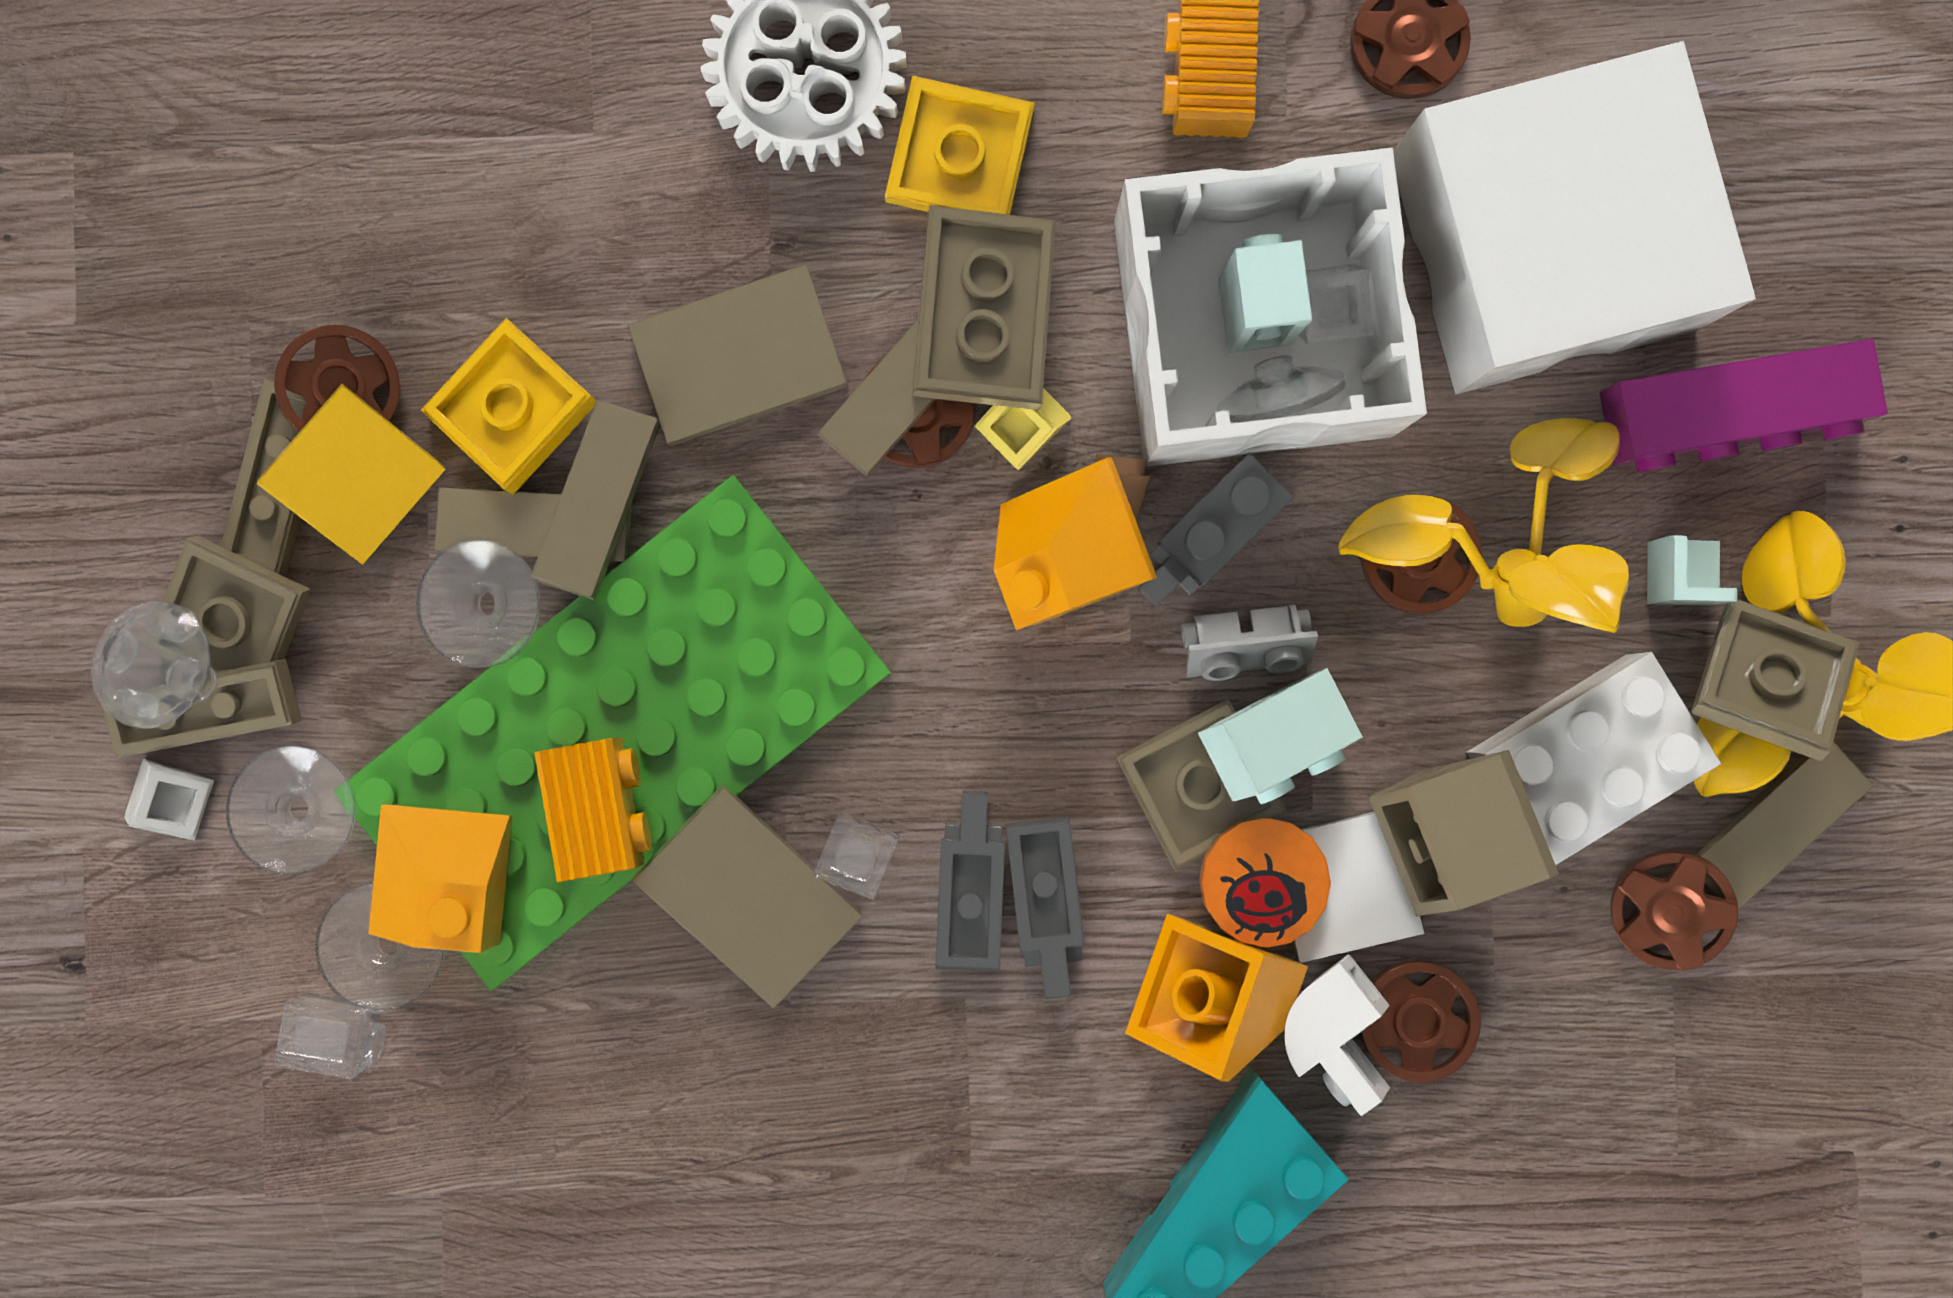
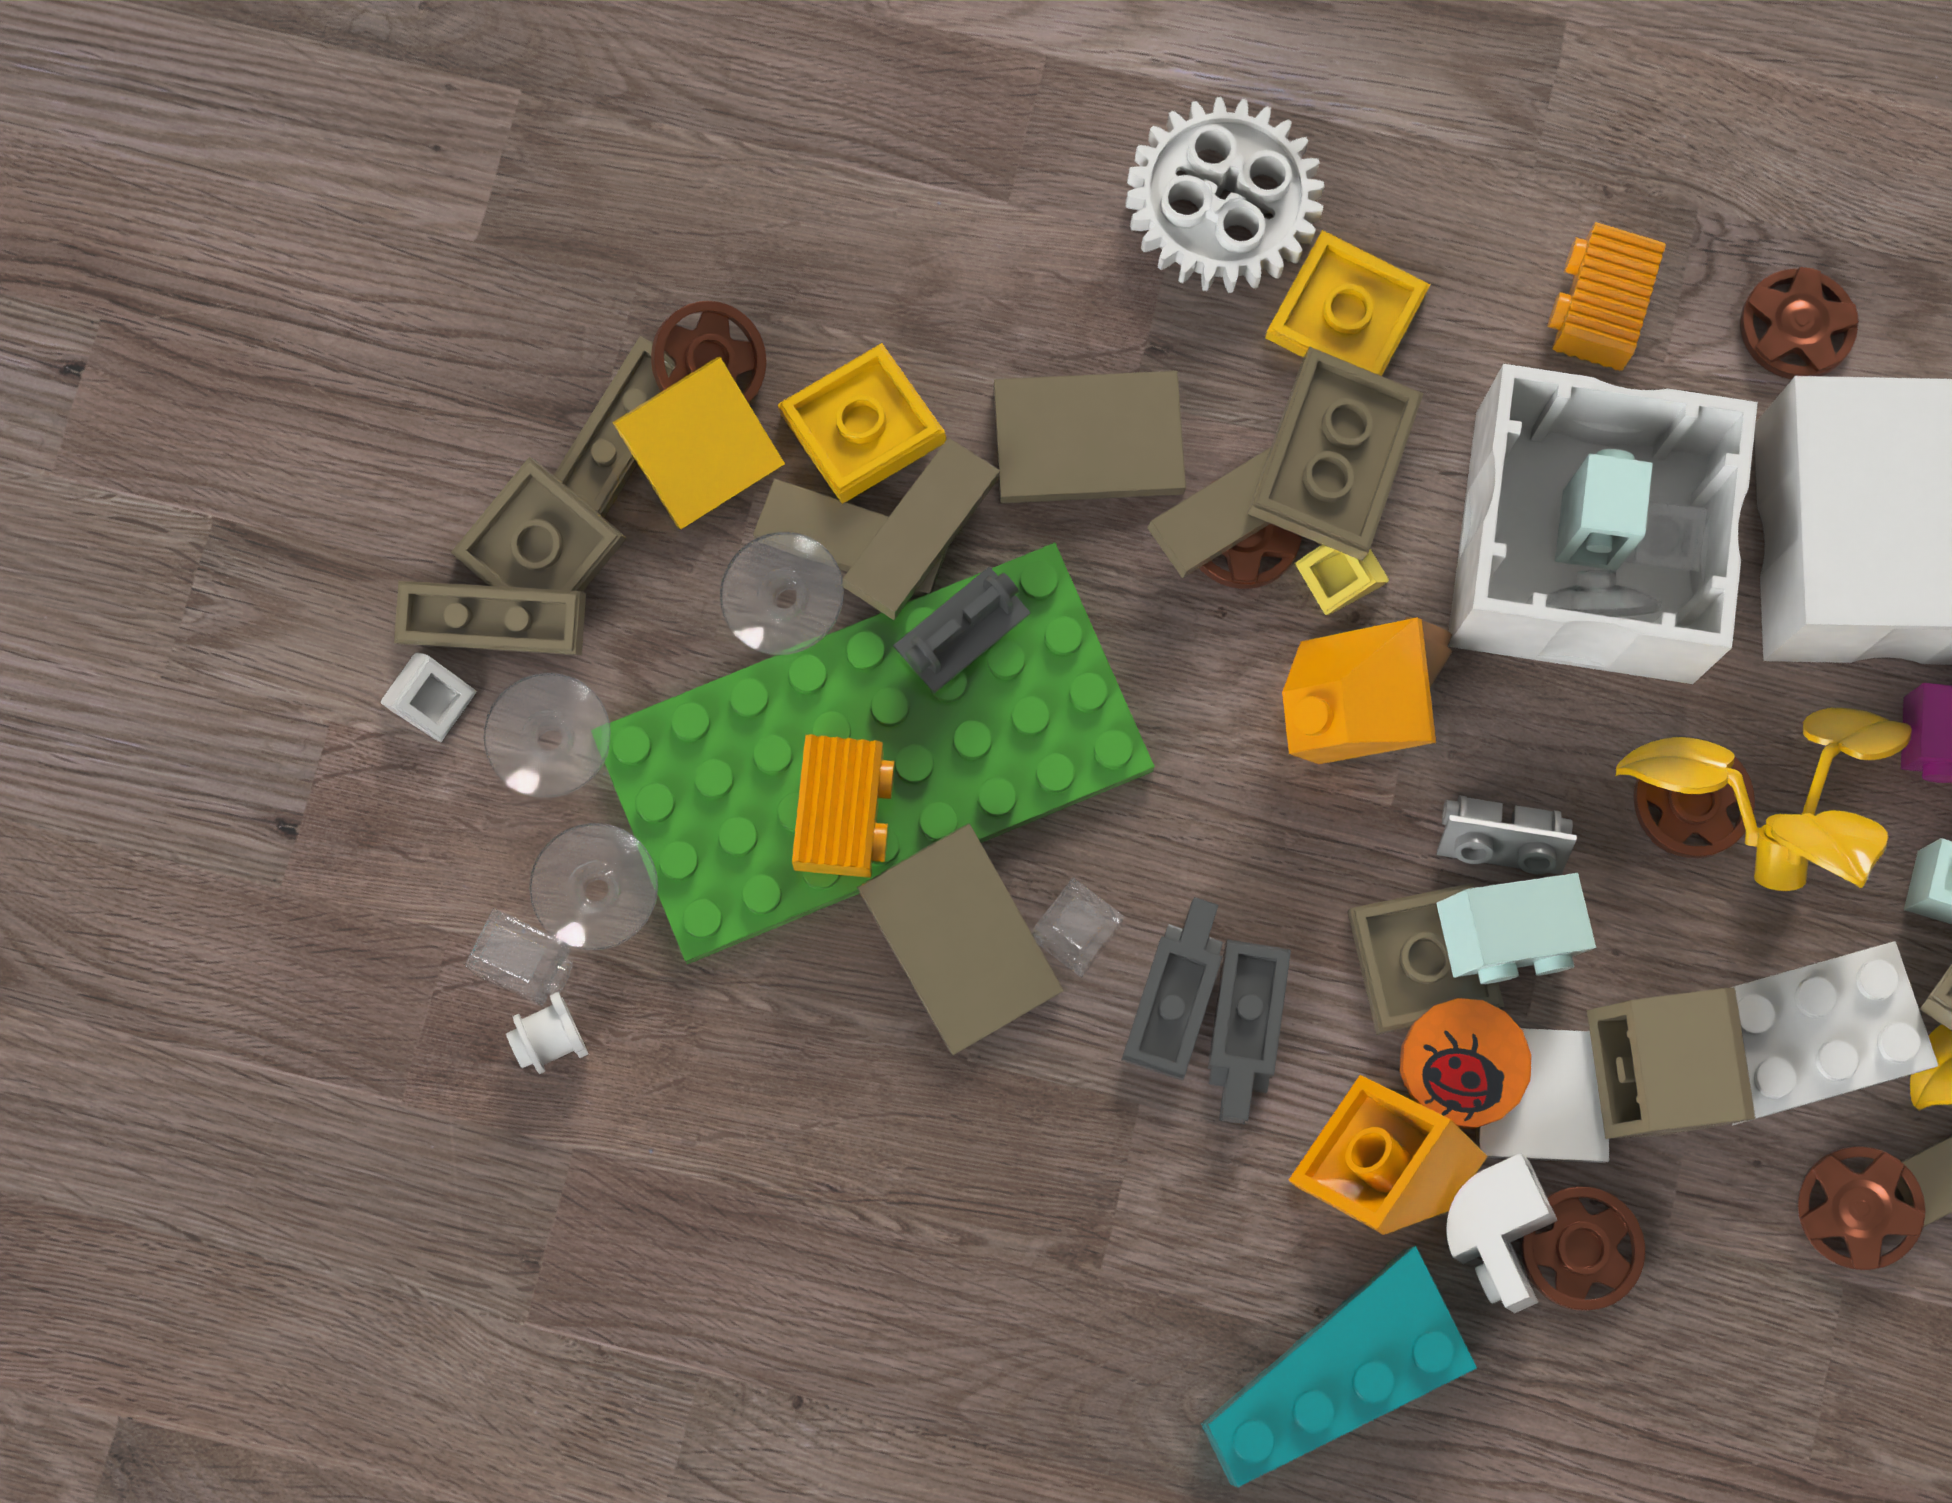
camera: 10 degrees right, 10 degrees down
(152, 665) = (463, 562): clear dish -> none
(379, 1101) = (545, 1035): none -> white brick
(440, 878) = (673, 833): light orange slope -> none
(662, 594) = (962, 628): none -> dark grey hinge
(1215, 529) = (1500, 721): dark grey hinge -> none

